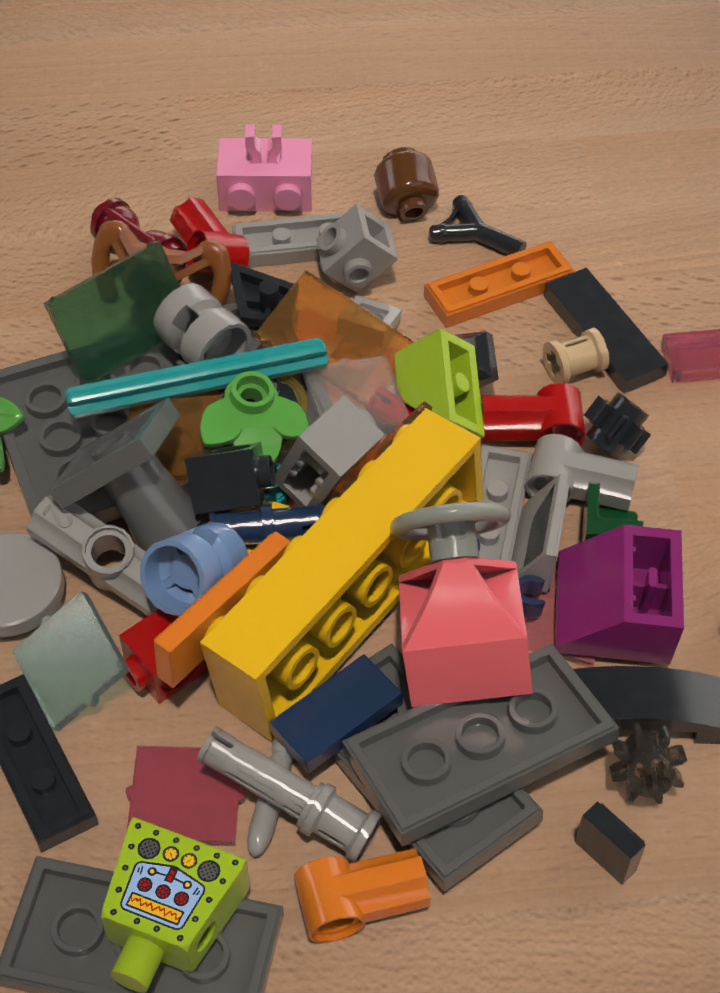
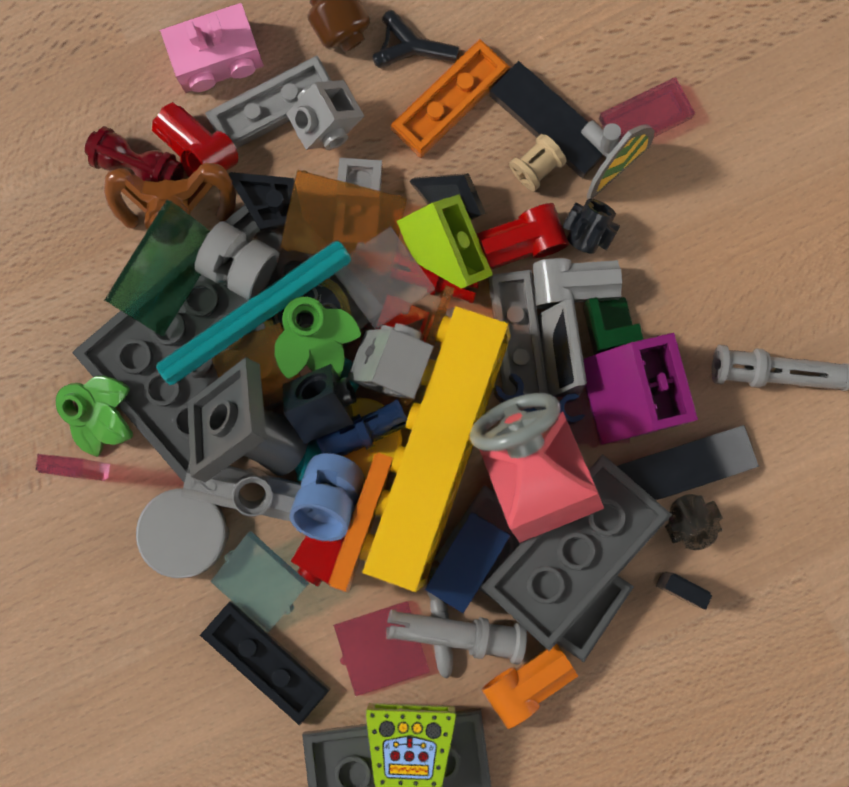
camera: 15 degrees left, 30 degrees up
(674, 361) = (618, 154): none -> shield

